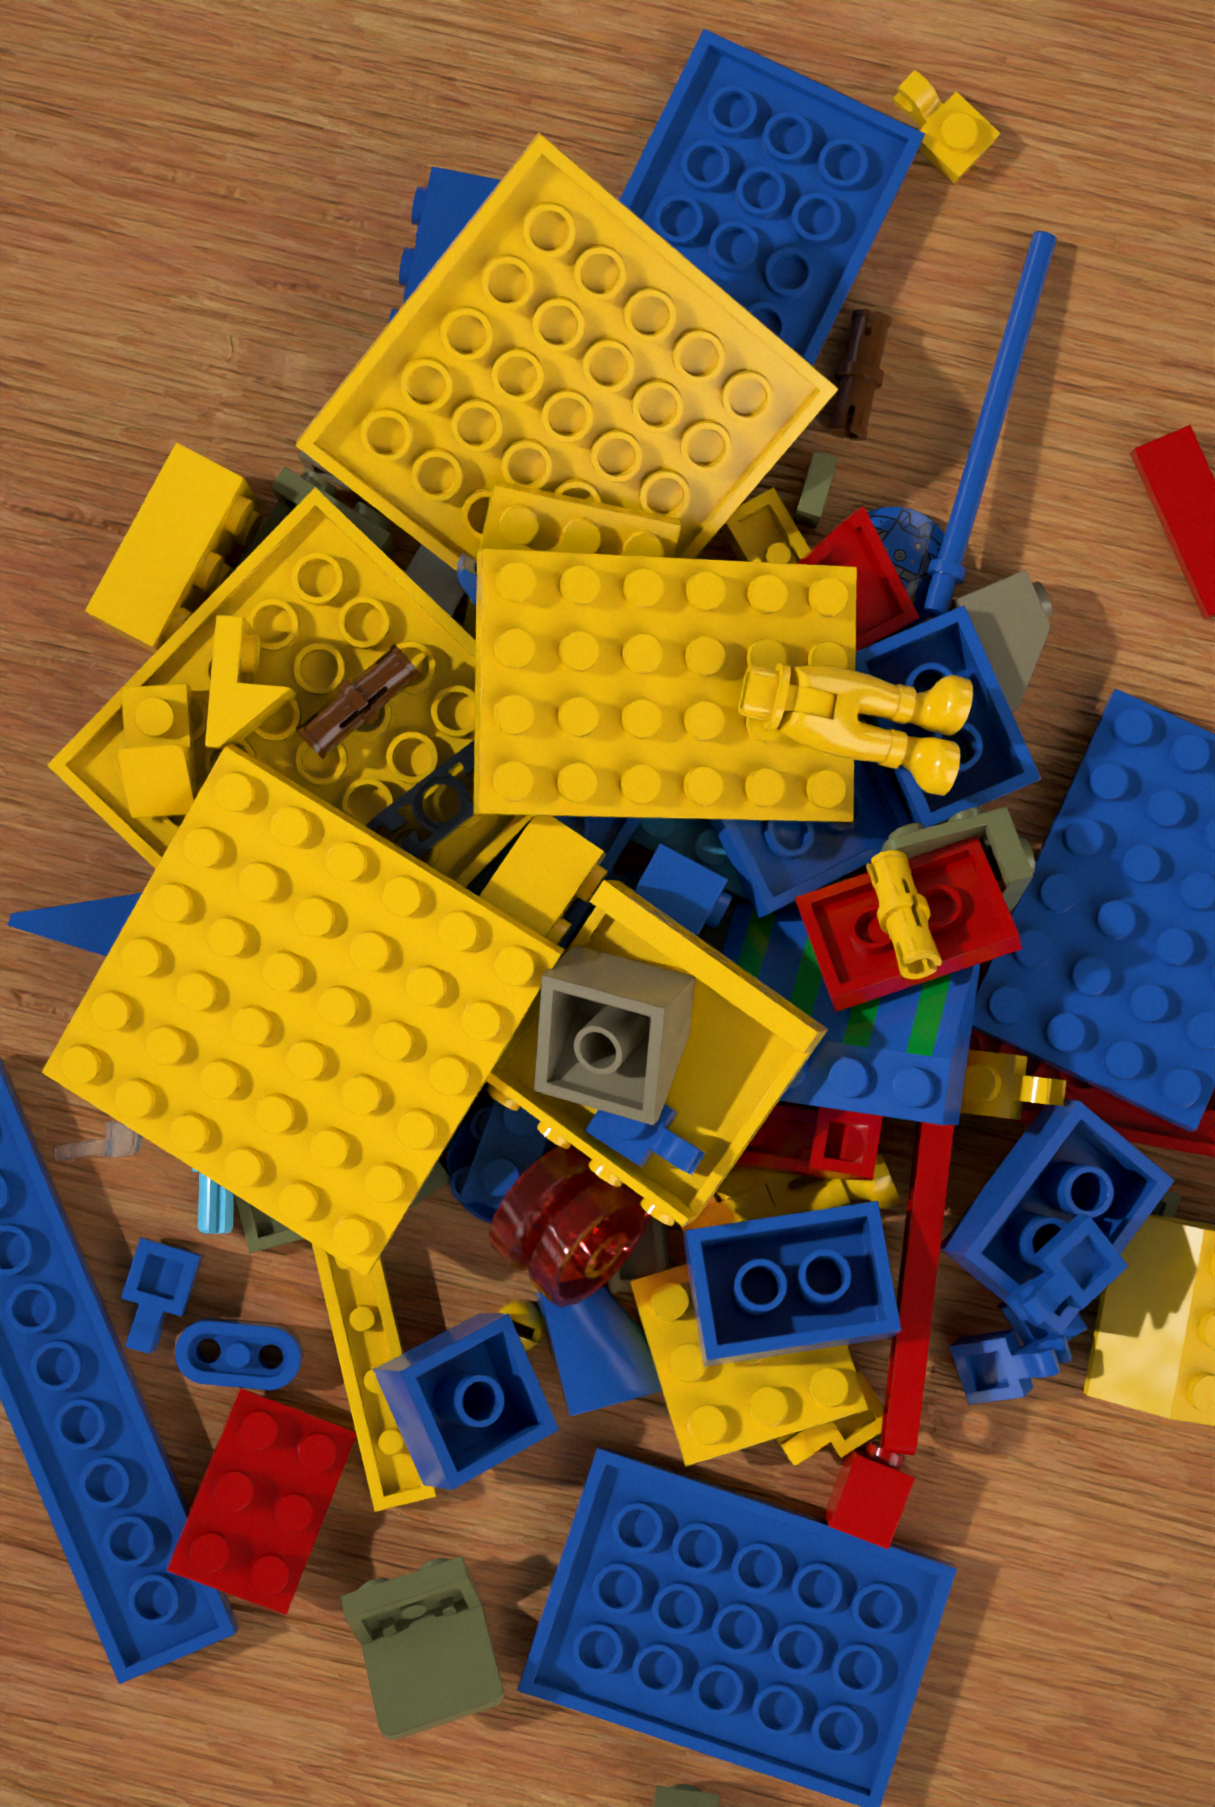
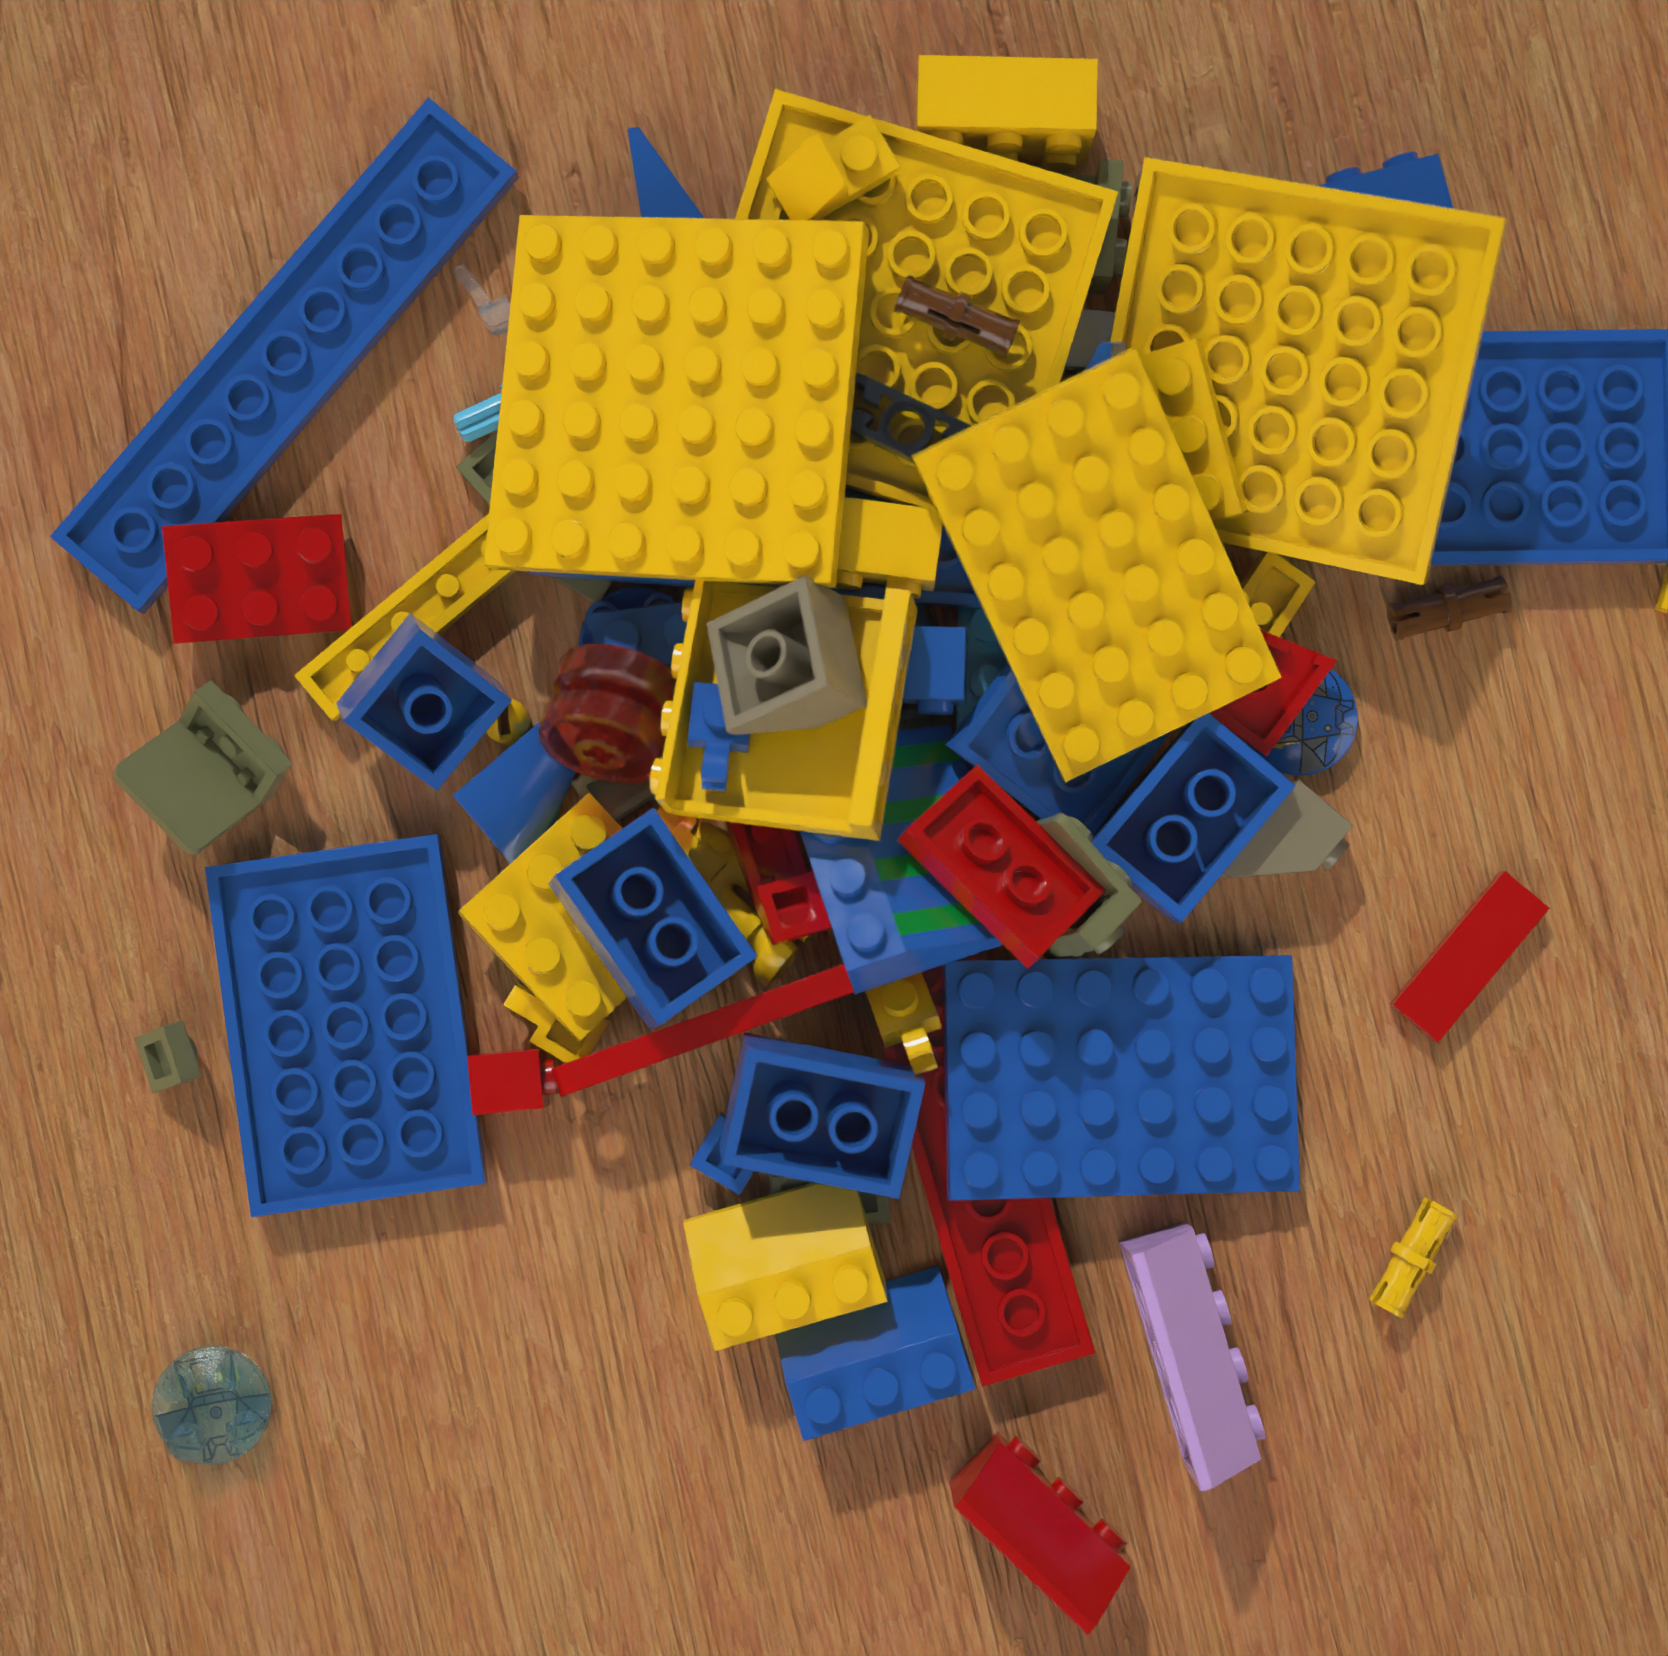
camera: 65 degrees right, 0 degrees up
(160, 1283) = (395, 405): blue plate -> none
(234, 705) = (902, 213): yellow slope -> none
(240, 1355) = (368, 502): blue plate -> none
(815, 489) = (1331, 618): olive tile -> none
(822, 709) = (1149, 701): yellow piece -> none
(903, 914) = (1007, 855): yellow pin -> none
(948, 568) = (1321, 761): blue bar -> none
(999, 1369) = (670, 1137): blue plate -> none
(1075, 1269) = (783, 1145): blue plate -> none

